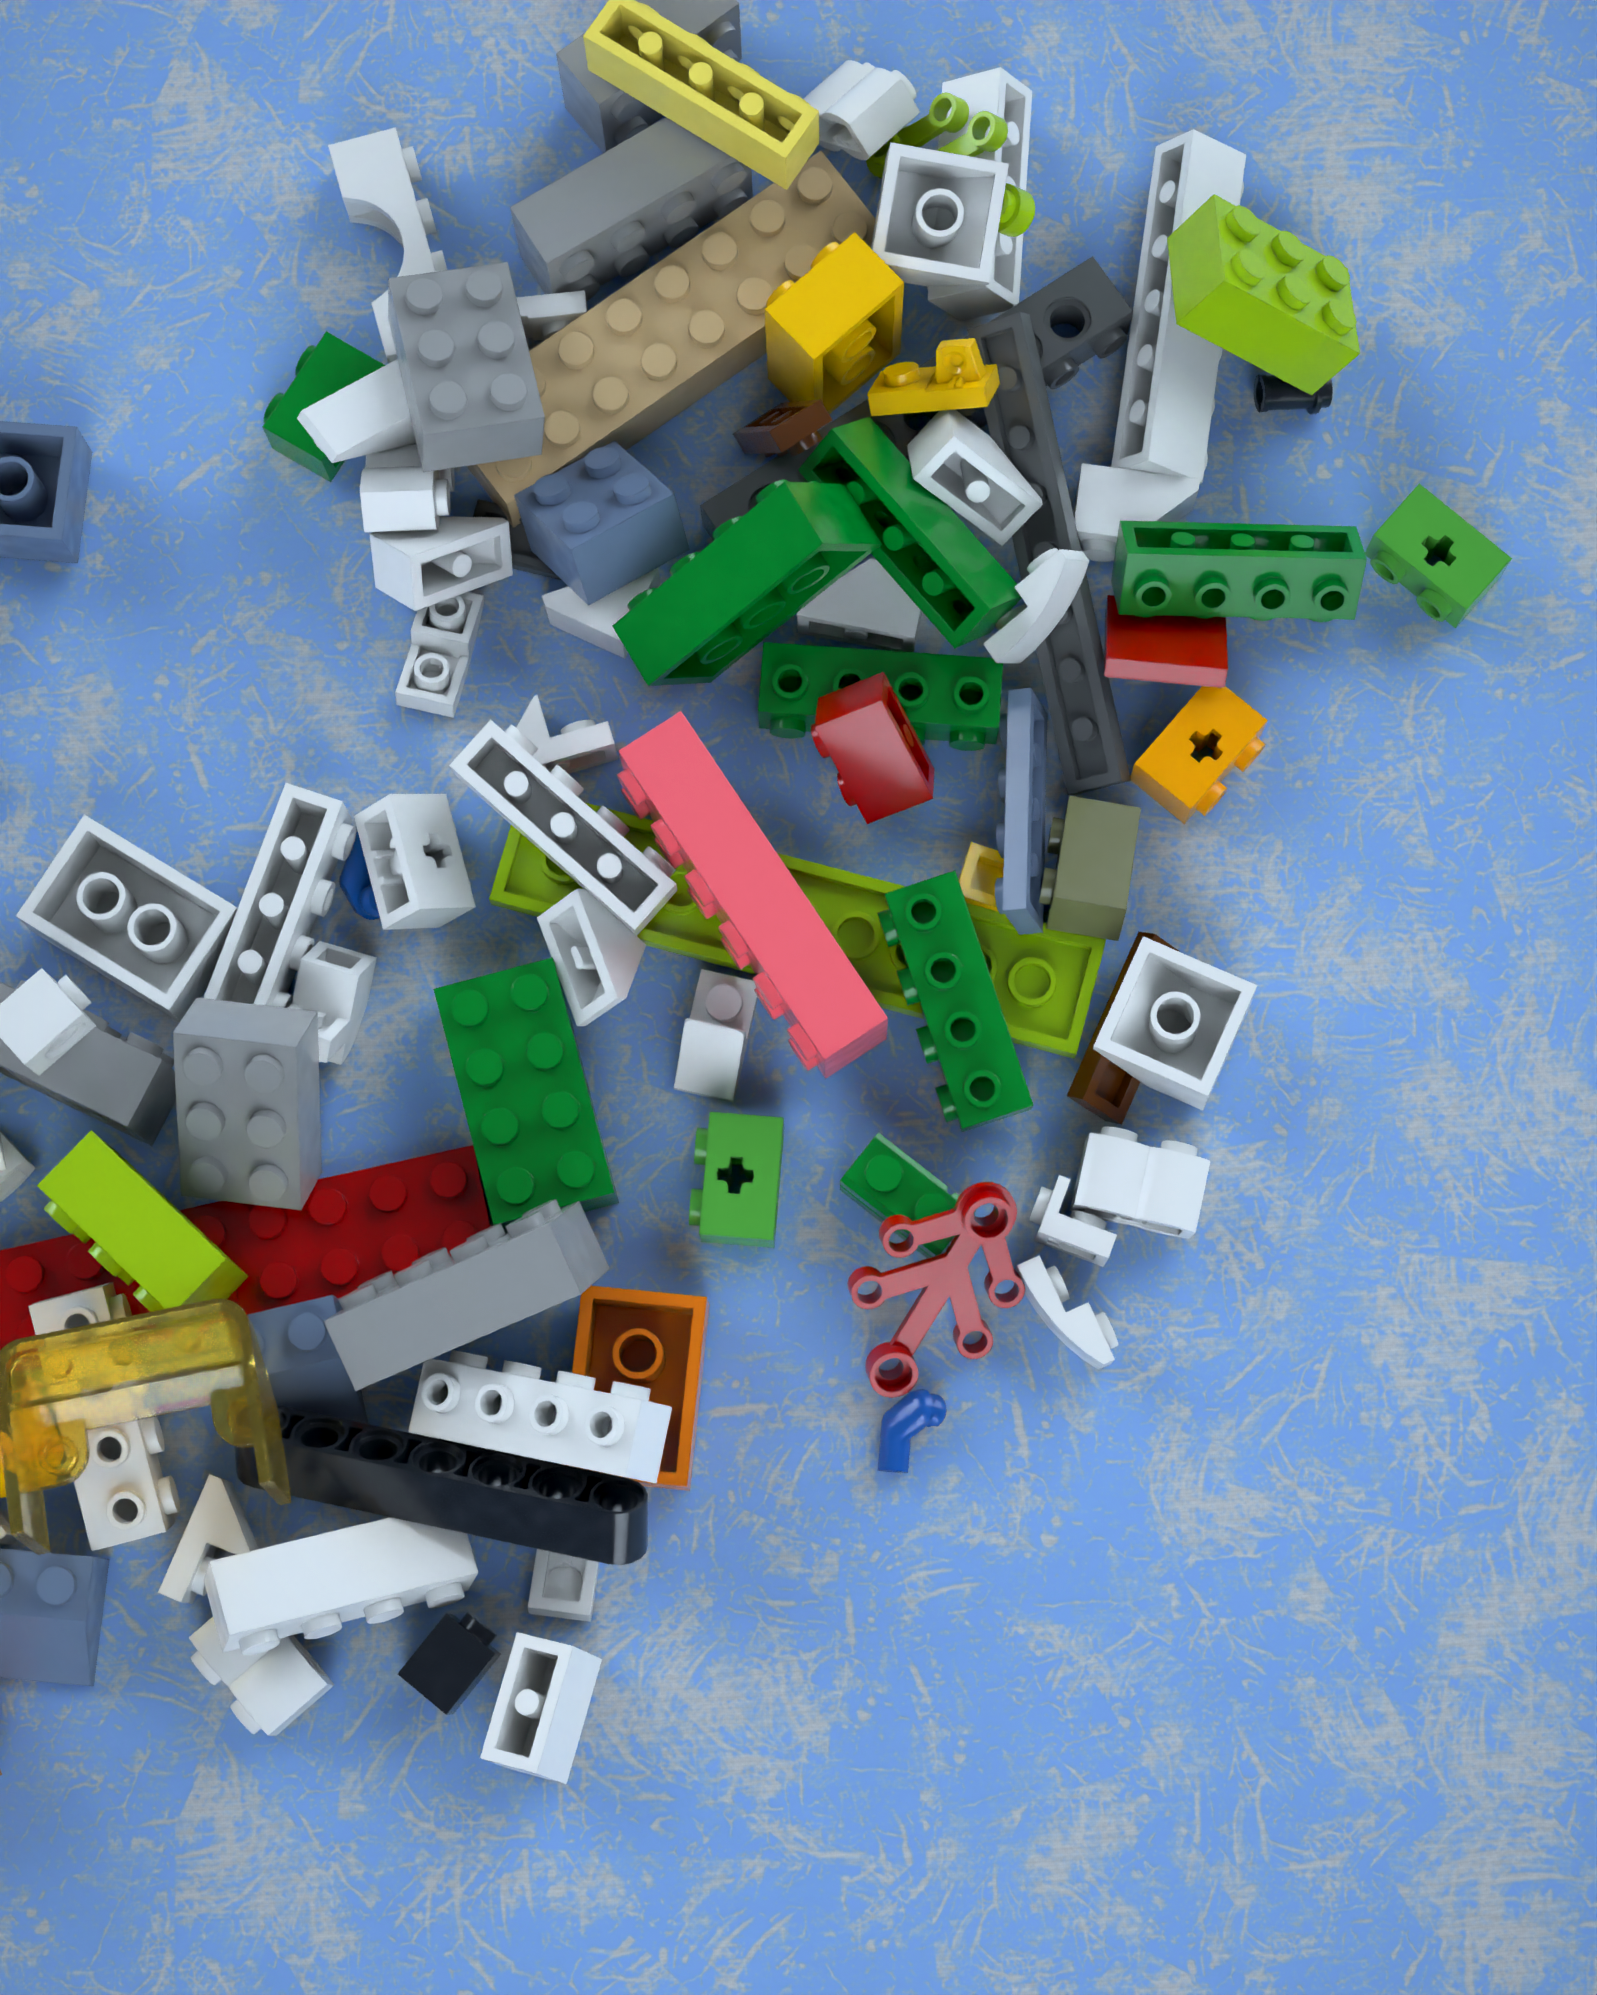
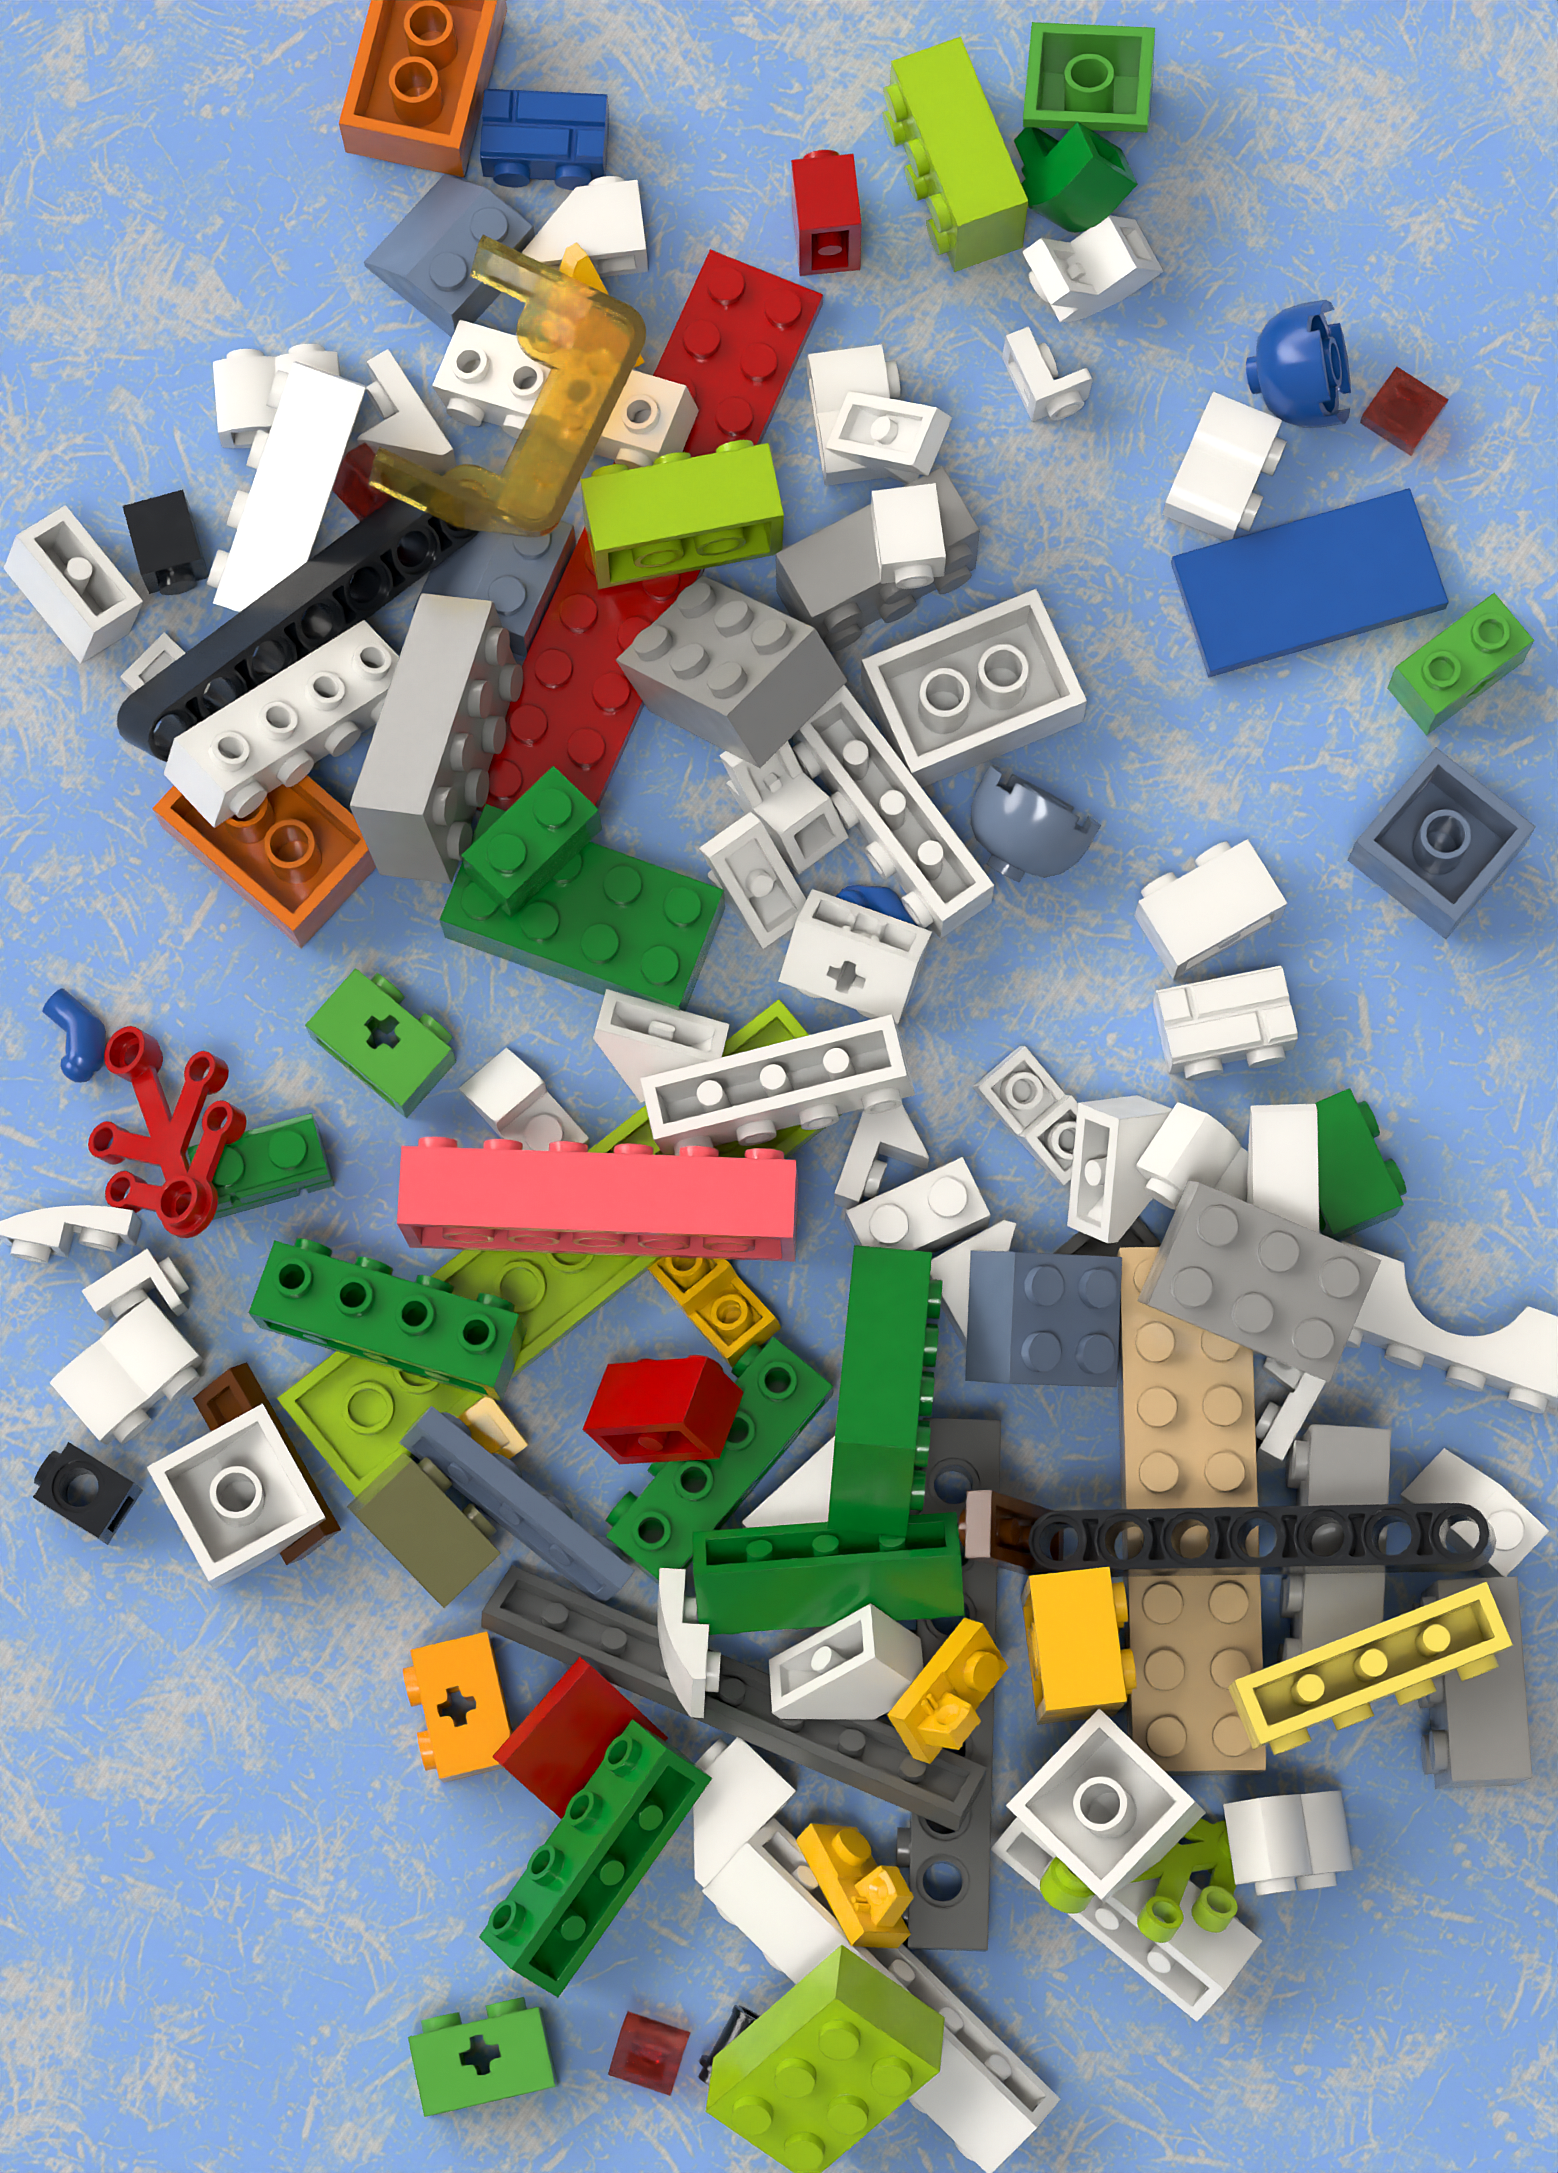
camera: 125 degrees right, 0 degrees up
(187, 631) = (1209, 906): none -> white brick
(217, 803) = (1027, 828): none -> sand blue cylinder
(272, 560) = (1225, 1023): none -> white brick
(288, 1522) = (353, 482): none -> clear red plate
(404, 982) = (754, 879): none -> white slope
(502, 1147) = (532, 841): none -> green brick
(524, 138) = (1455, 1481): none -> white slope
(586, 677) = (922, 1212): none -> white brick
(659, 203) = (1293, 1547): none -> black beam
(762, 776) = (716, 1303): none -> yellow slope
(1125, 359) = (860, 1893): none -> yellow hinge
(1259, 1121) = (108, 1509): none -> black brick
(1340, 447) = (649, 2053): none -> clear red plate

